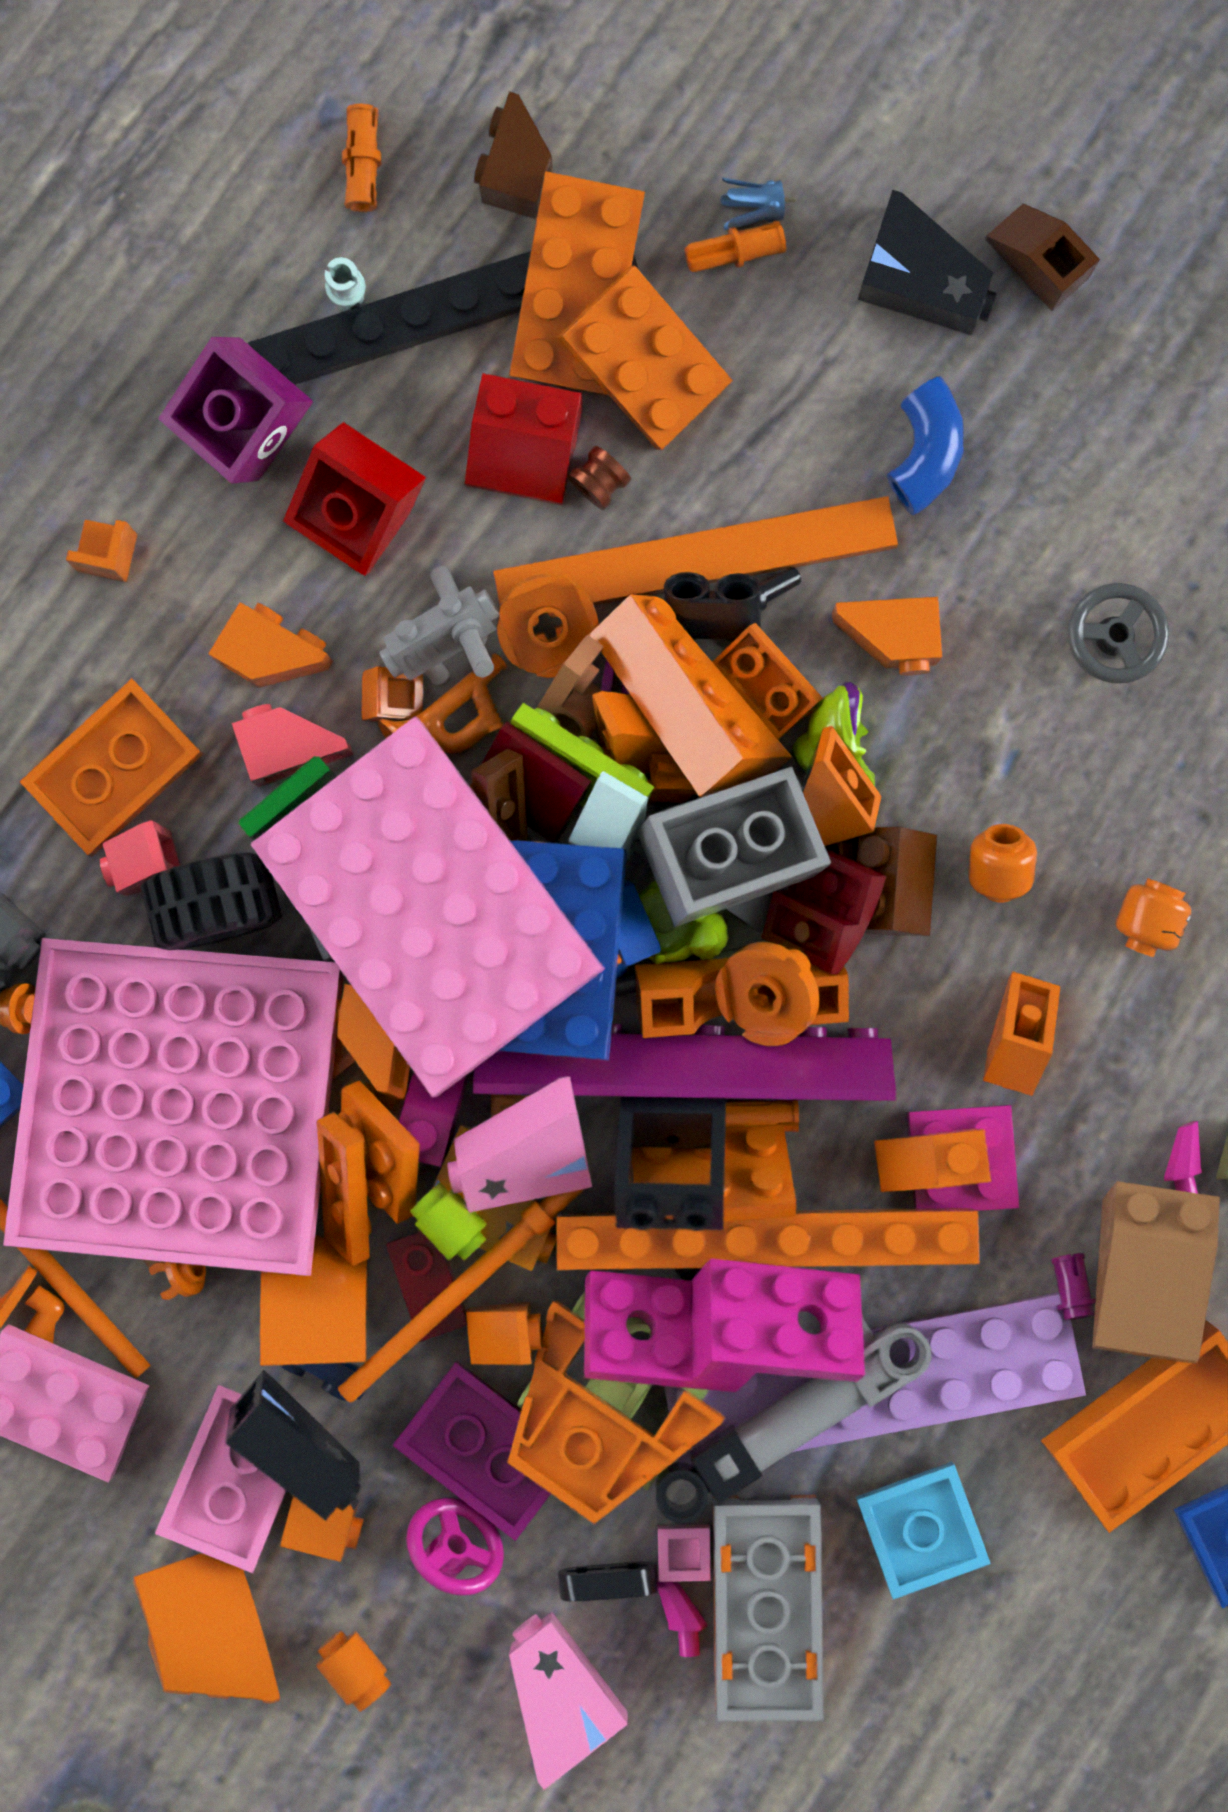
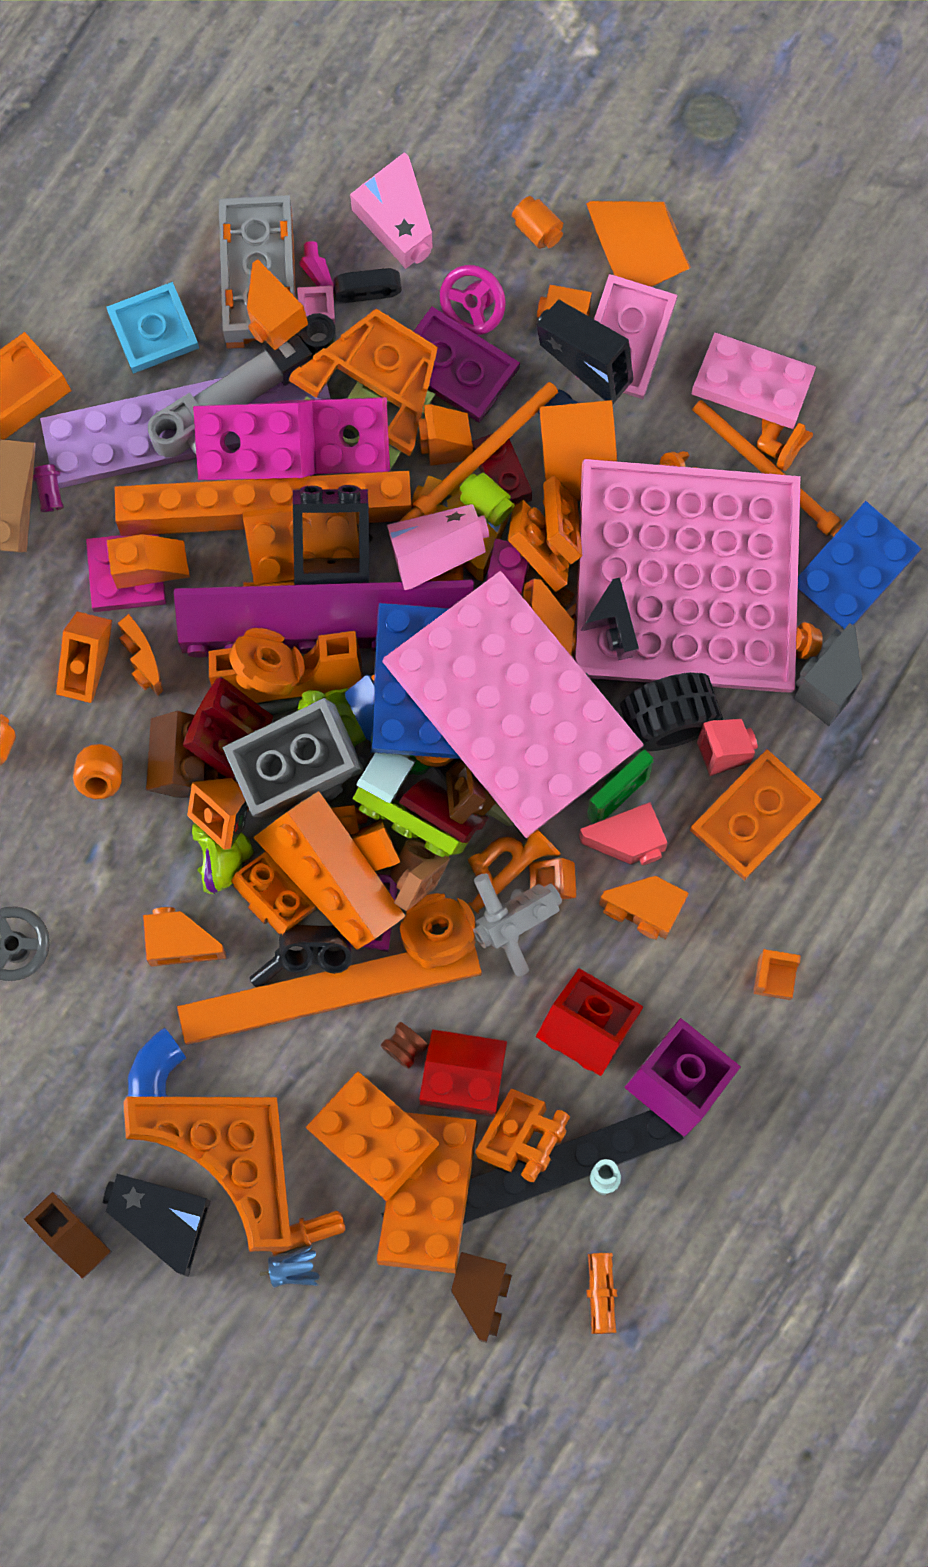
camera: 175 degrees right, 10 degrees down
(280, 1044) = (613, 611): none -> black slope
(466, 354) = (512, 1129): none -> orange plate
(747, 1527) = (272, 308): none -> orange slope
(825, 354) = (233, 1141): none -> orange plate
(935, 1014) = (143, 662): none -> orange slope

